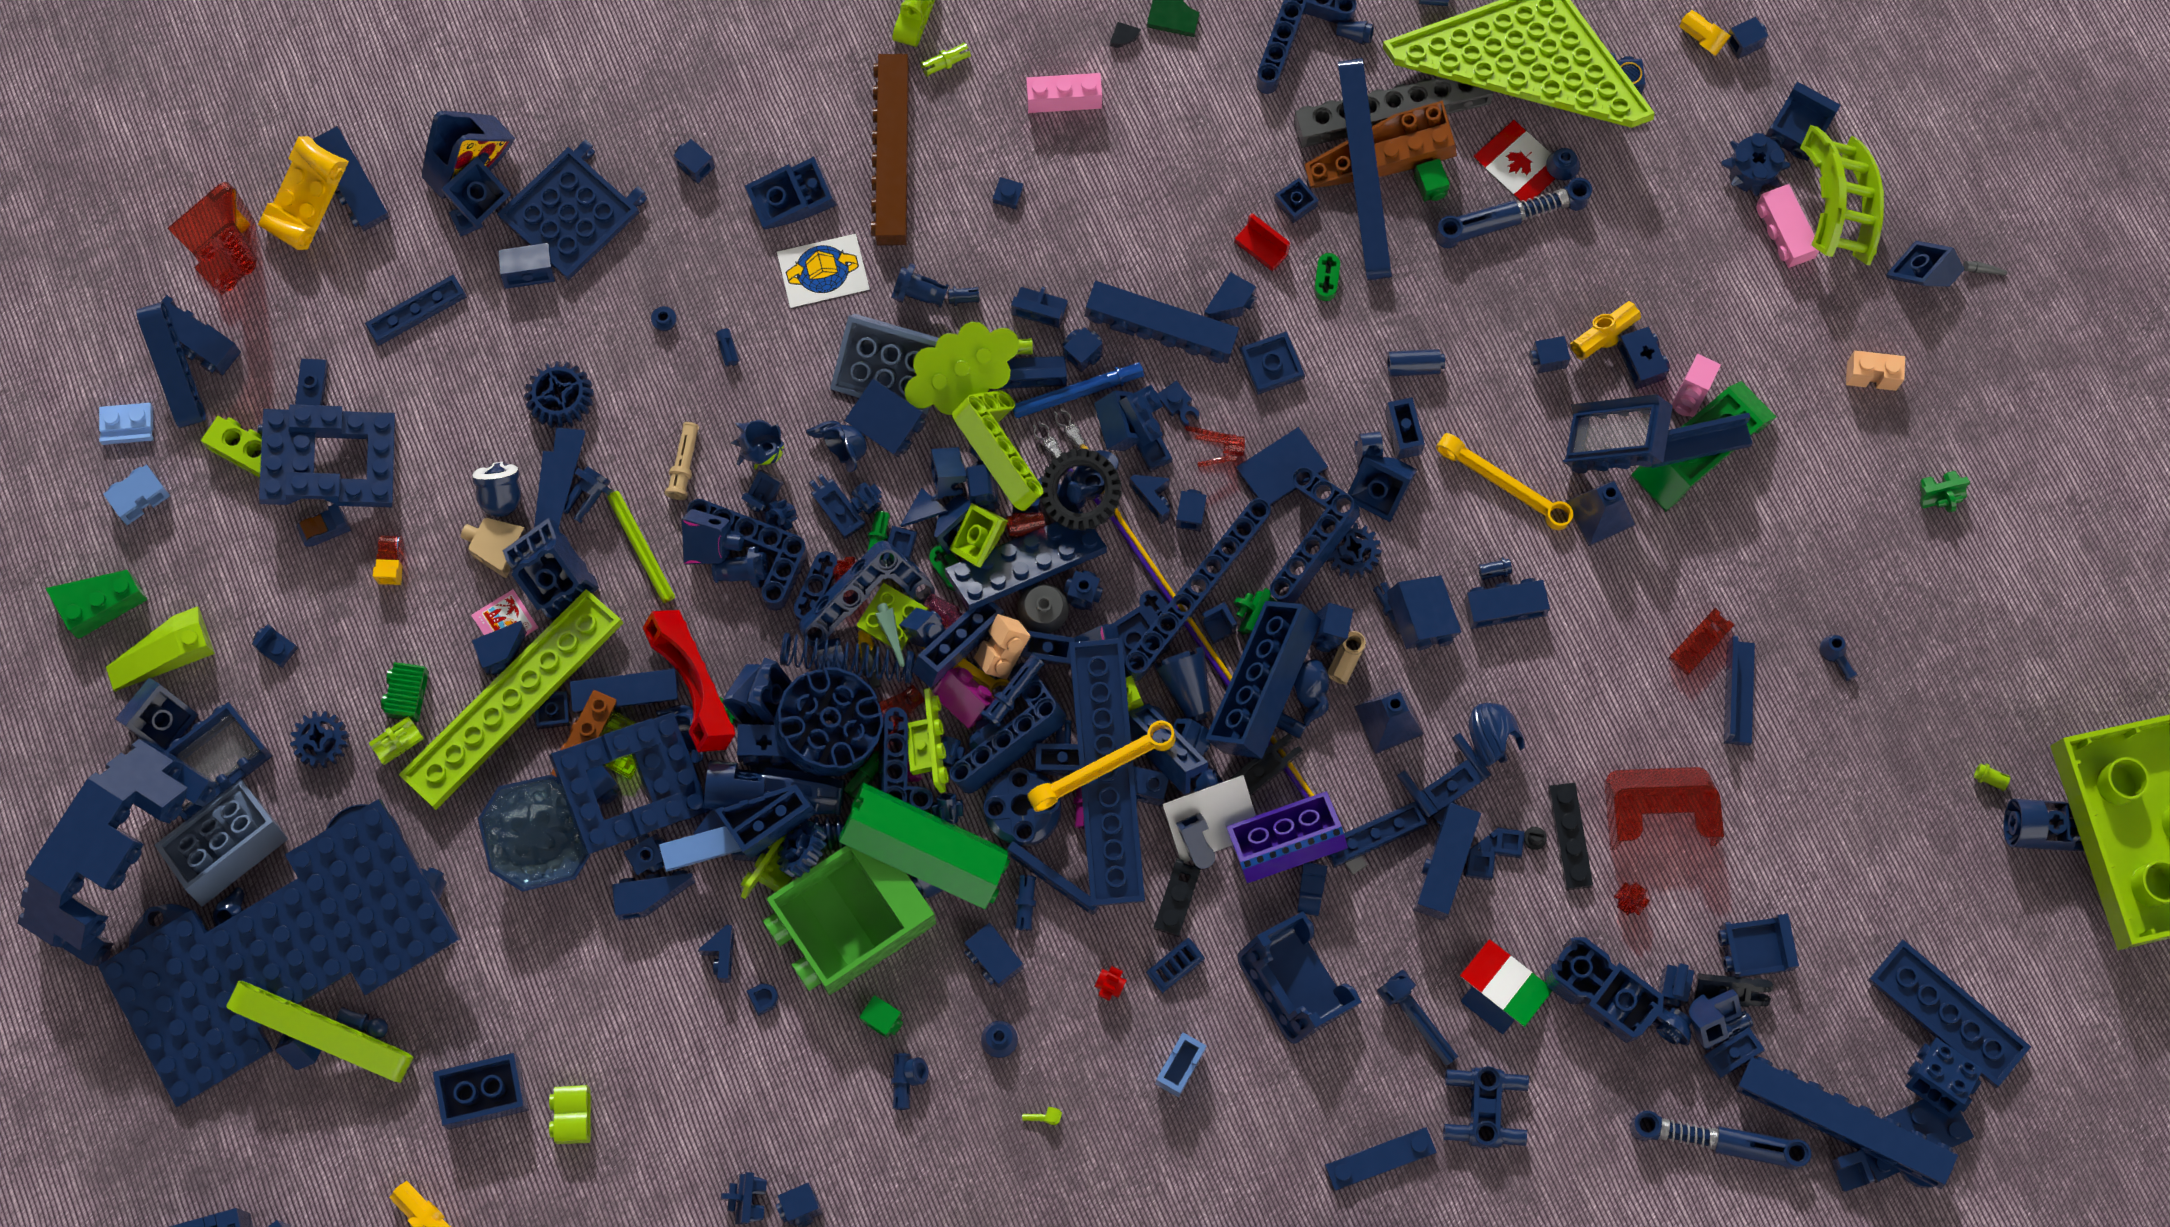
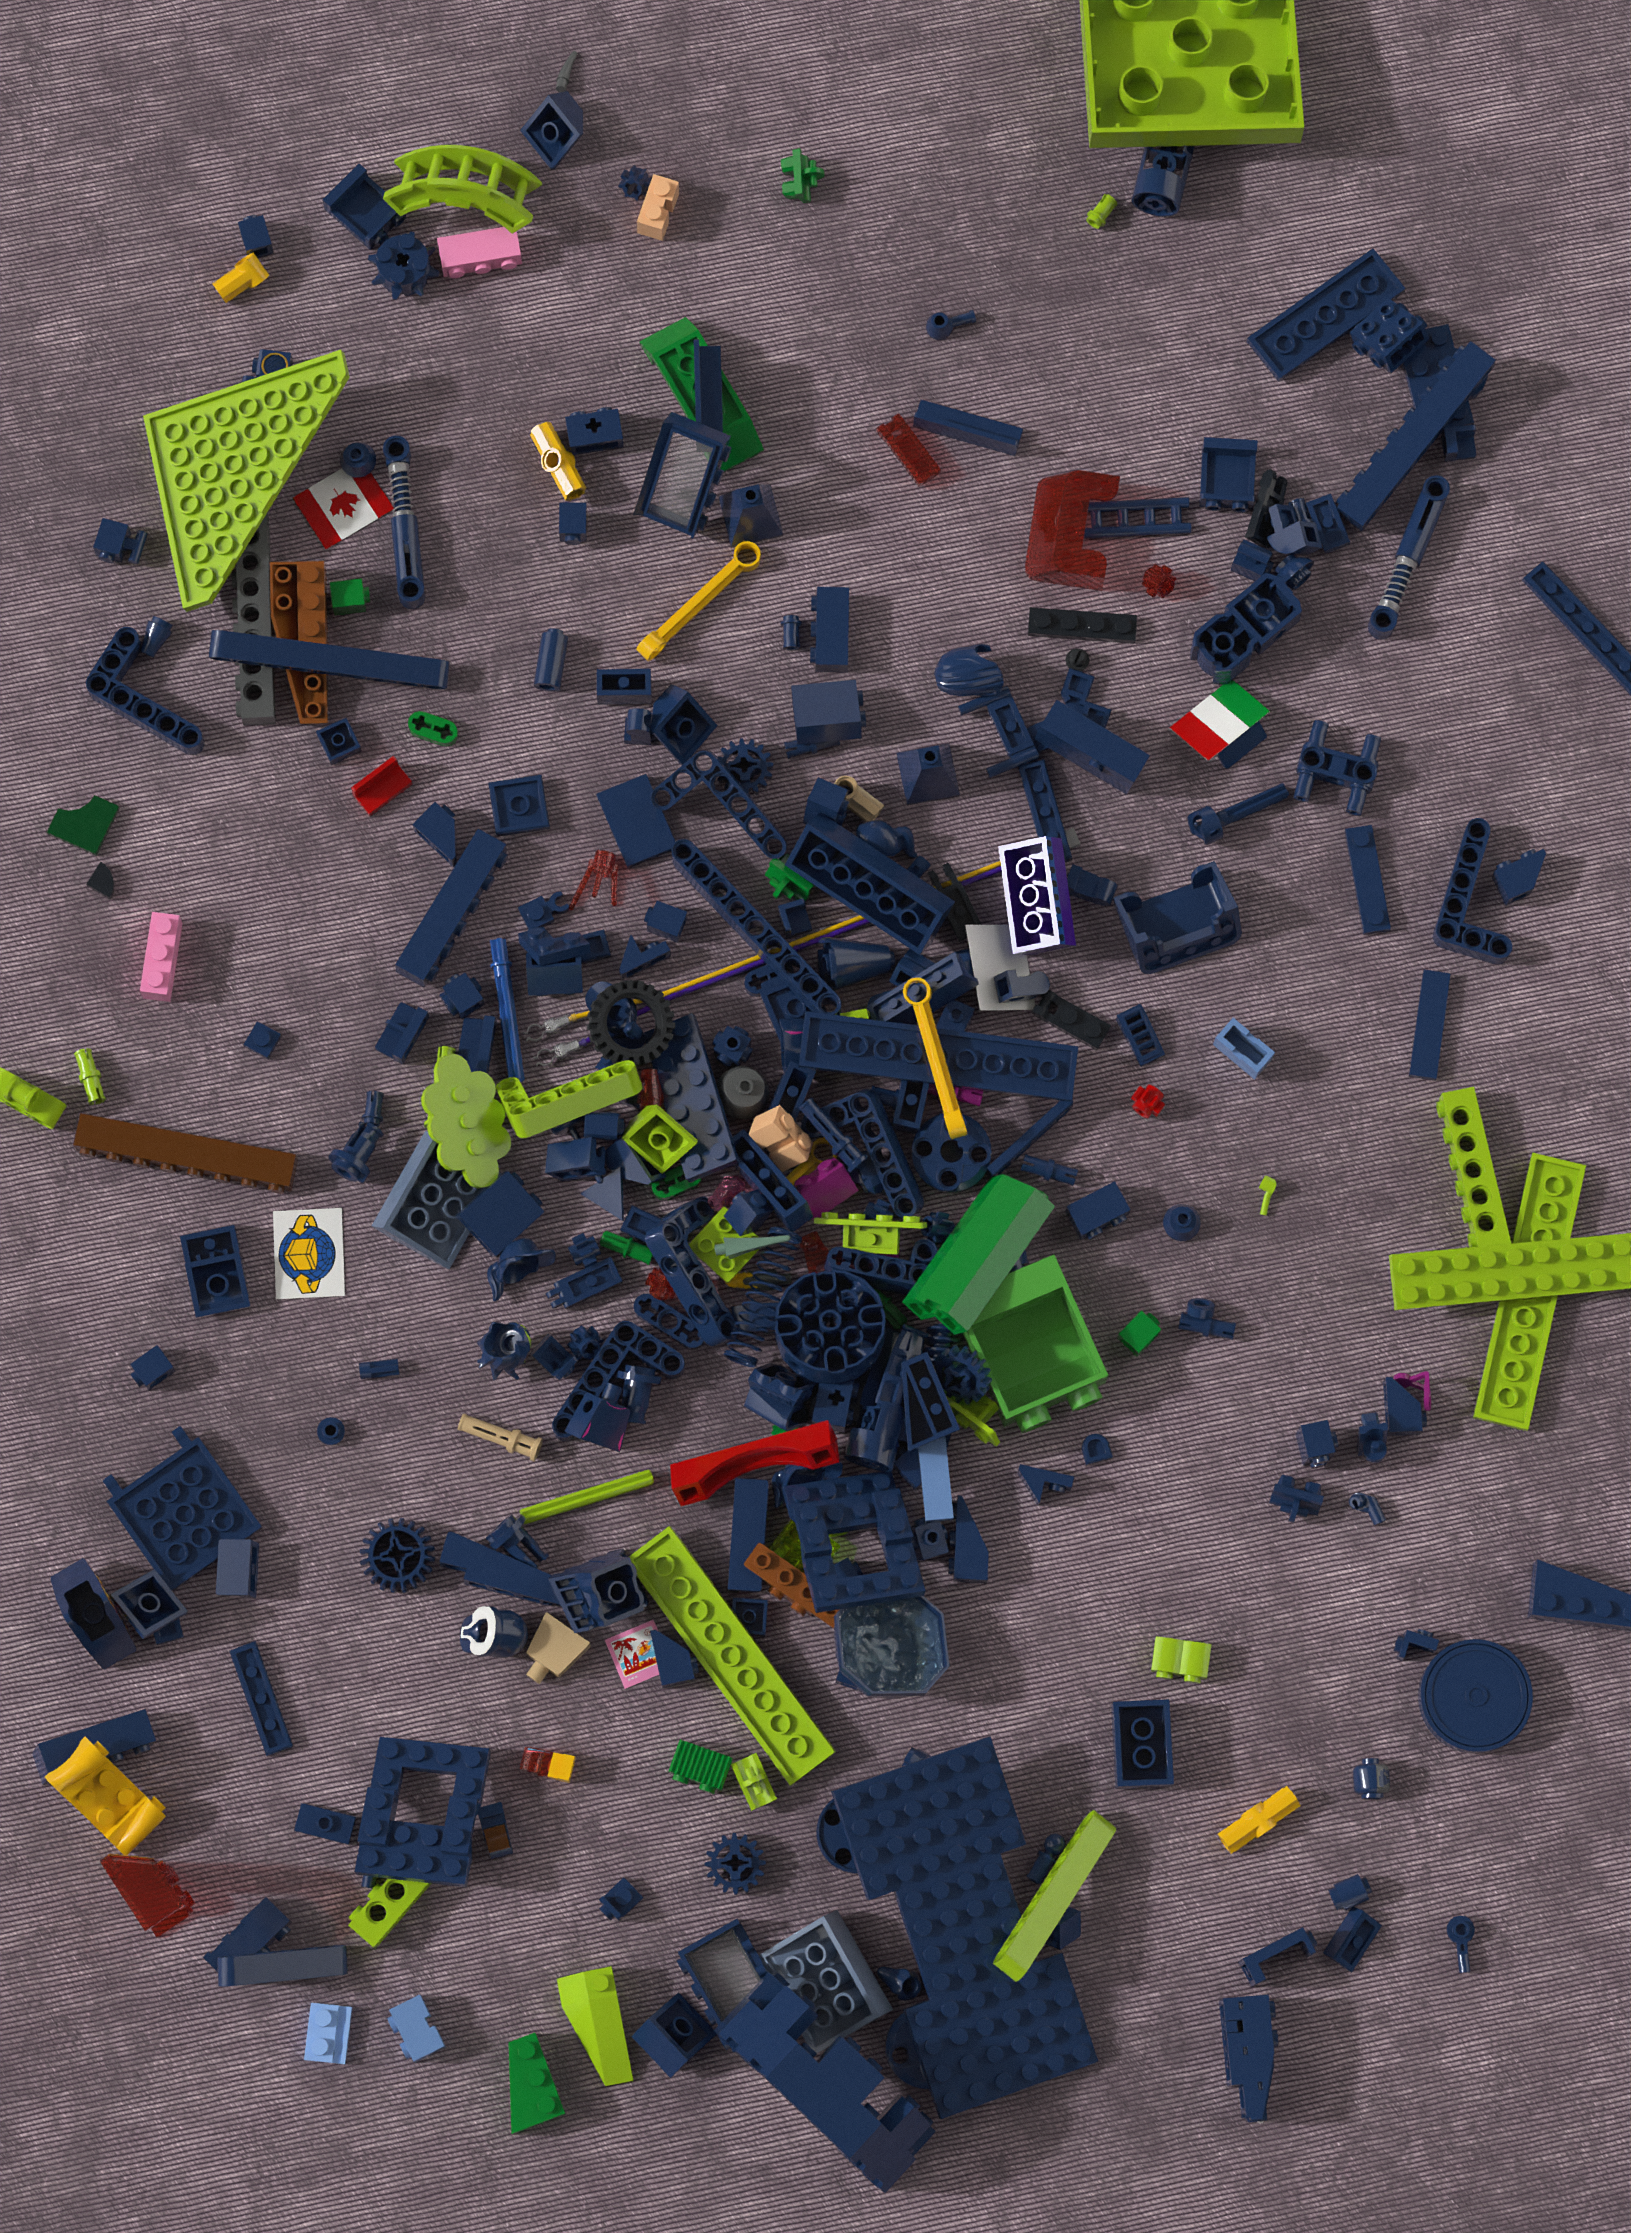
camera: 80 degrees left, 5 degrees up
(1684, 883) = (1150, 527): none -> dark blue bar
(1695, 386) = (645, 386): bright pink brick -> none
(1894, 344) = (635, 182): none -> dark blue gear

